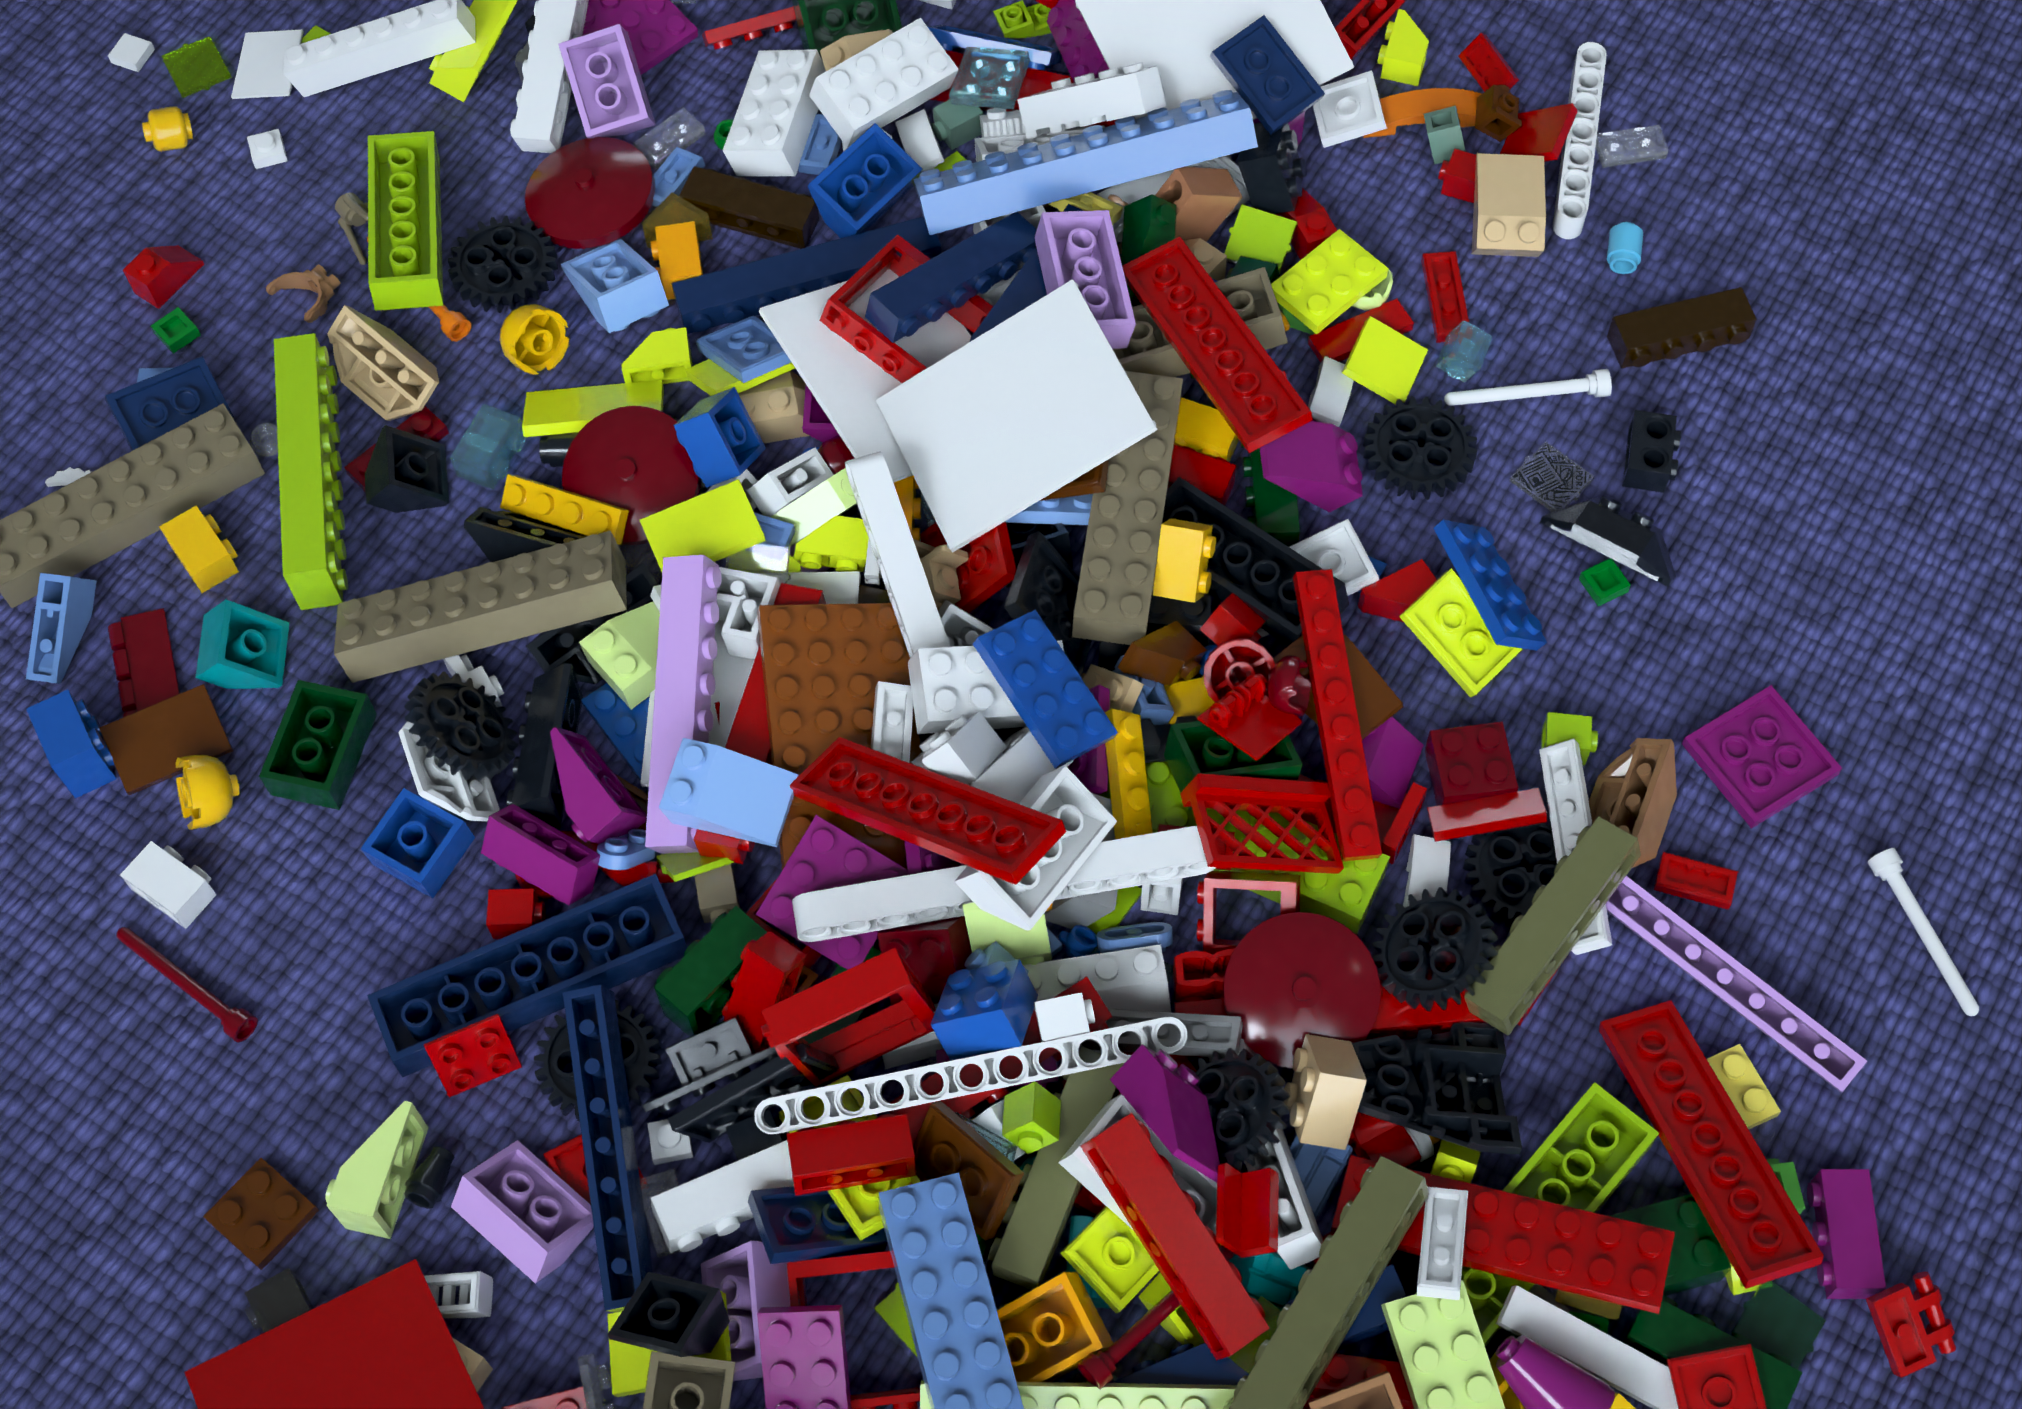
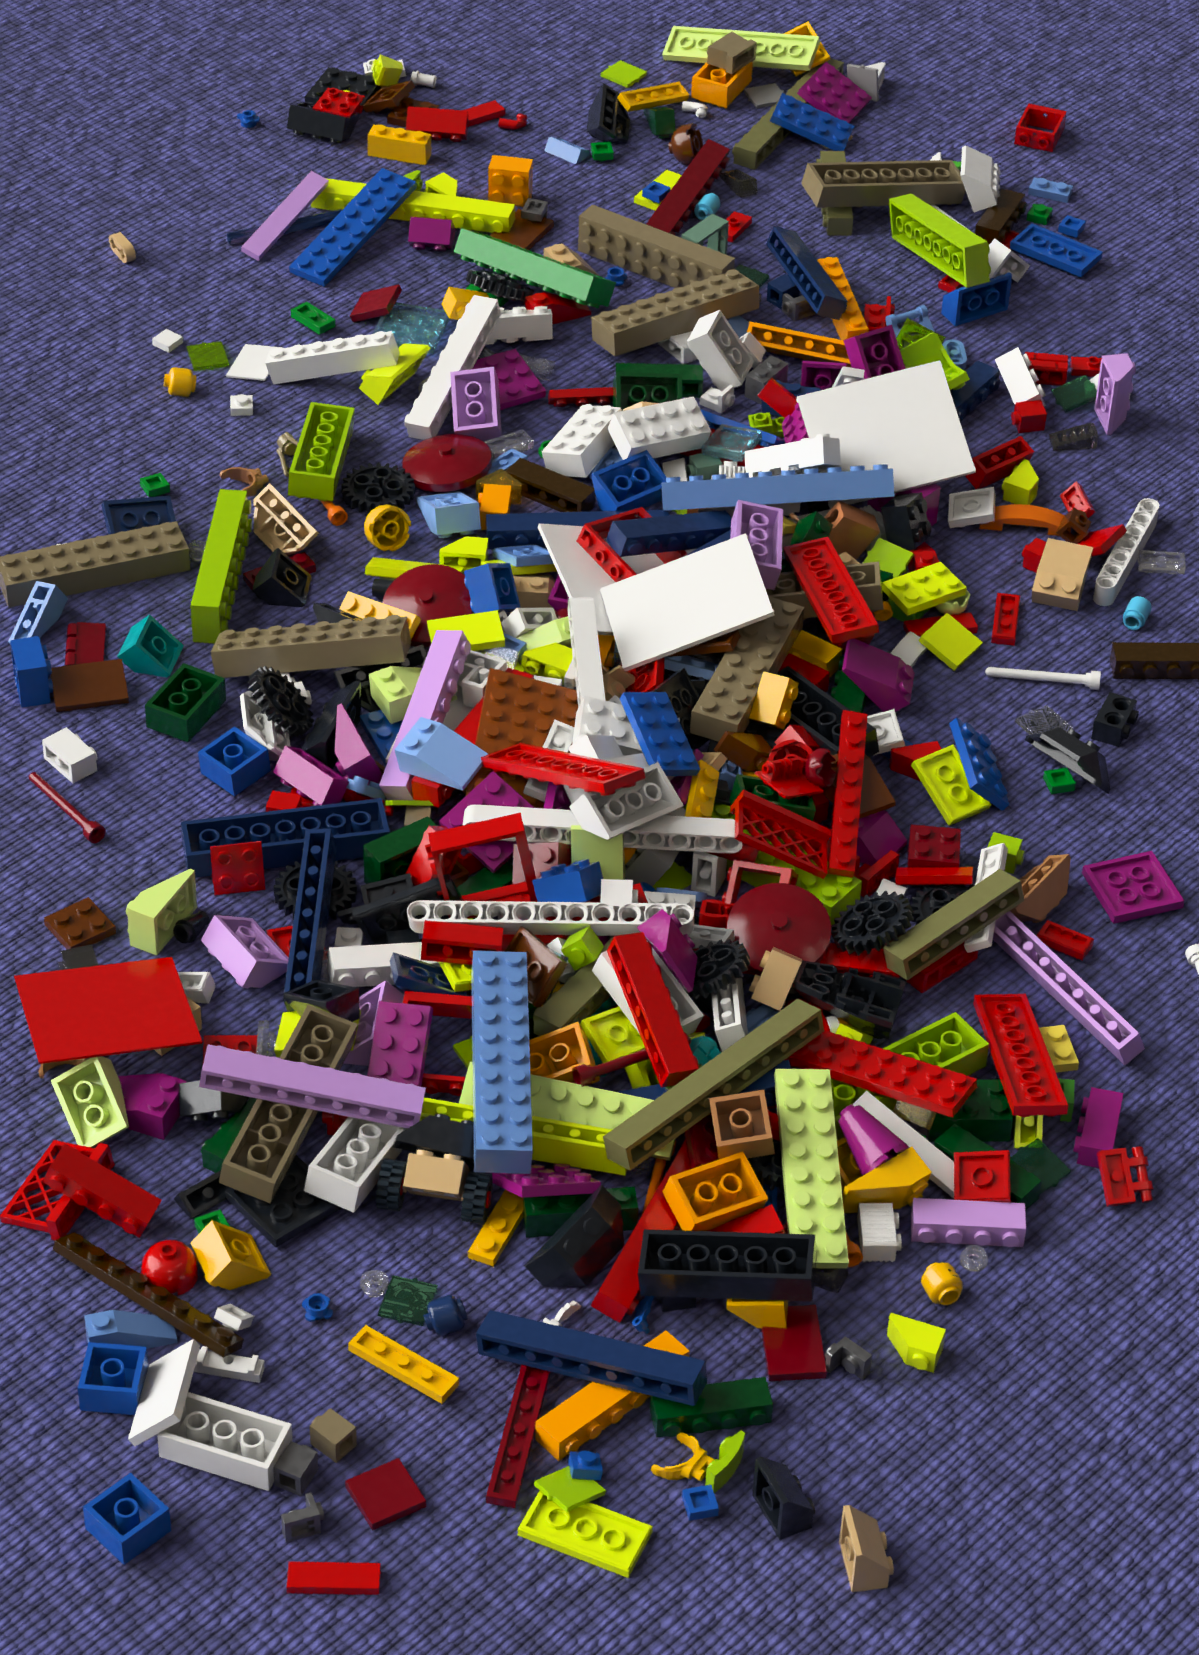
camera: 10 degrees right, 20 degrees down
(161, 272) = (153, 454): red slope -> none
(200, 549) = (138, 595): yellow brick -> none
(205, 790) = (107, 711): yellow cylinder -> none
(488, 446) = (339, 577): clear light blue brick -> none
(1247, 1210) = (702, 1012): red panel -> none
(1267, 74) = (914, 461): dark blue plate -> none
(1420, 448) = (958, 690): black gear -> none
(1442, 1243) = (823, 1051): white tile -> none
(1444, 133) = (1032, 527): sand green brick -> none
(1464, 351) = (1005, 645): clear light blue brick -> none

